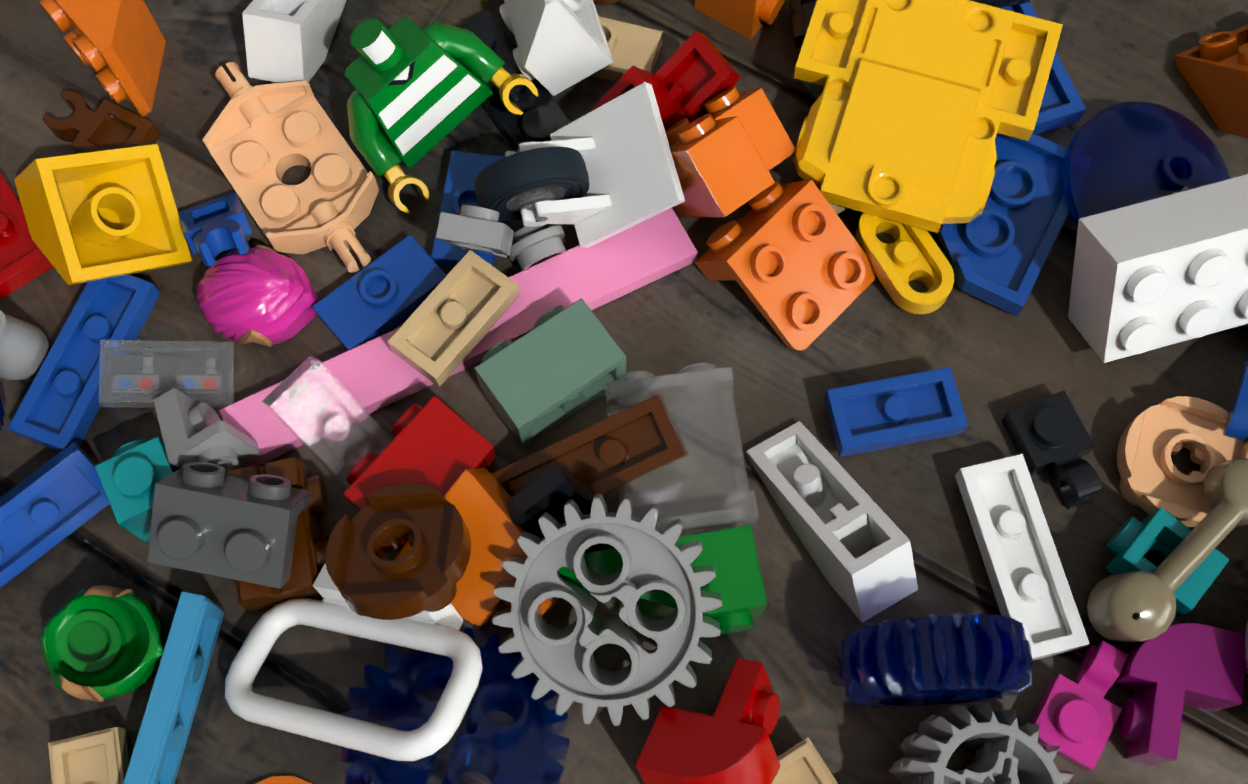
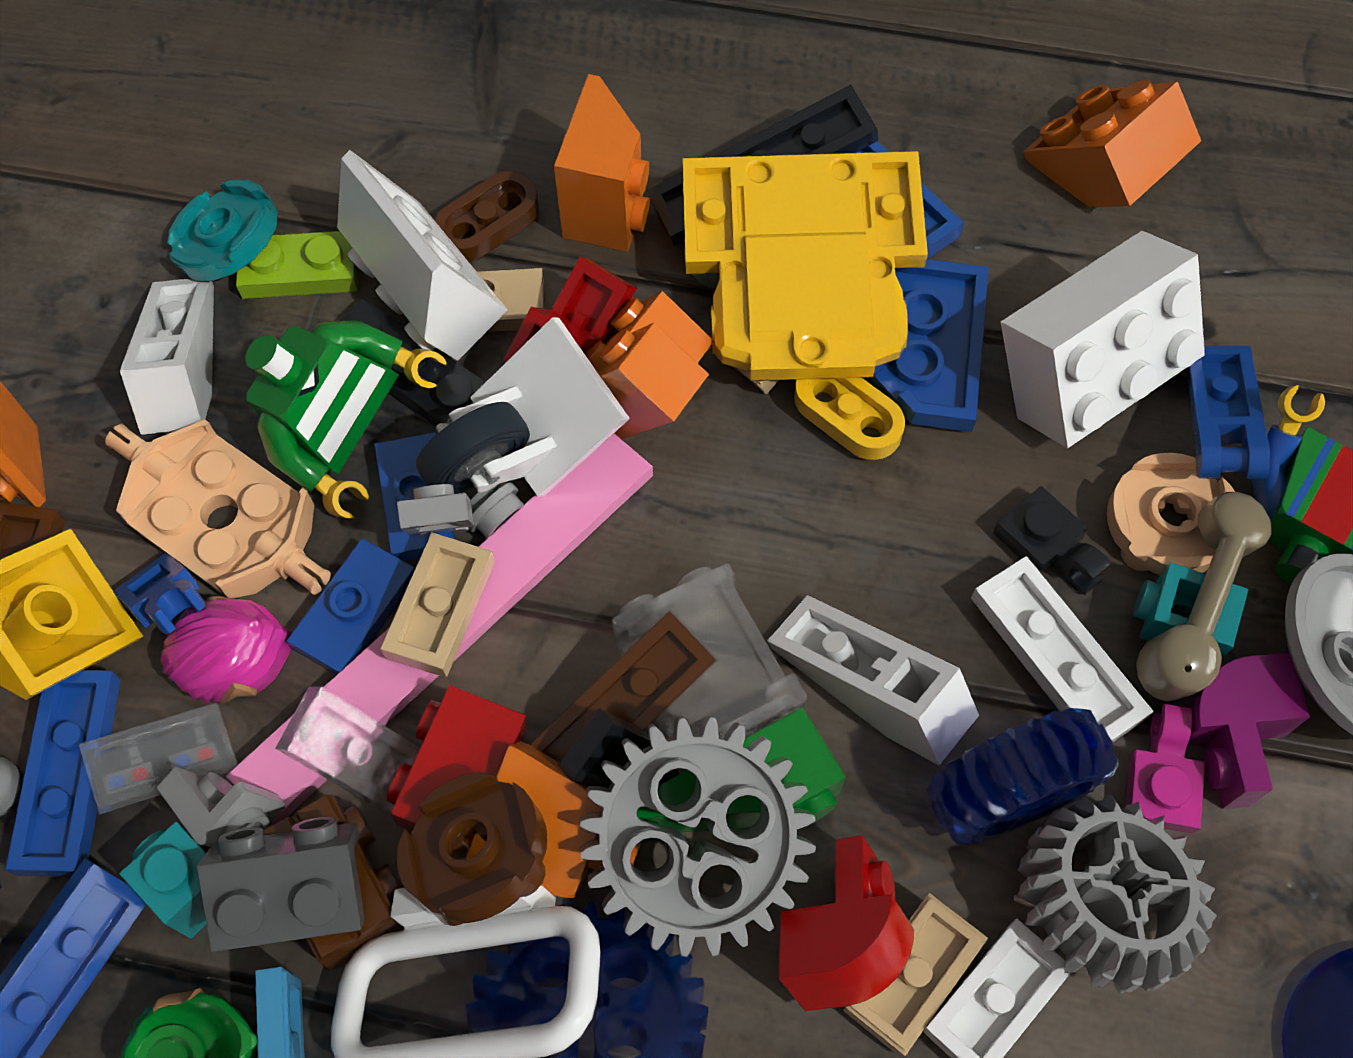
camera: 20 degrees left, 5 degrees down
(550, 370) = (552, 625): sand green brick -> none
(791, 260) = (744, 445): orange bracket -> none
(895, 411) = (894, 556): blue plate -> none
(1136, 156) = (1025, 252): clear blue dish -> none

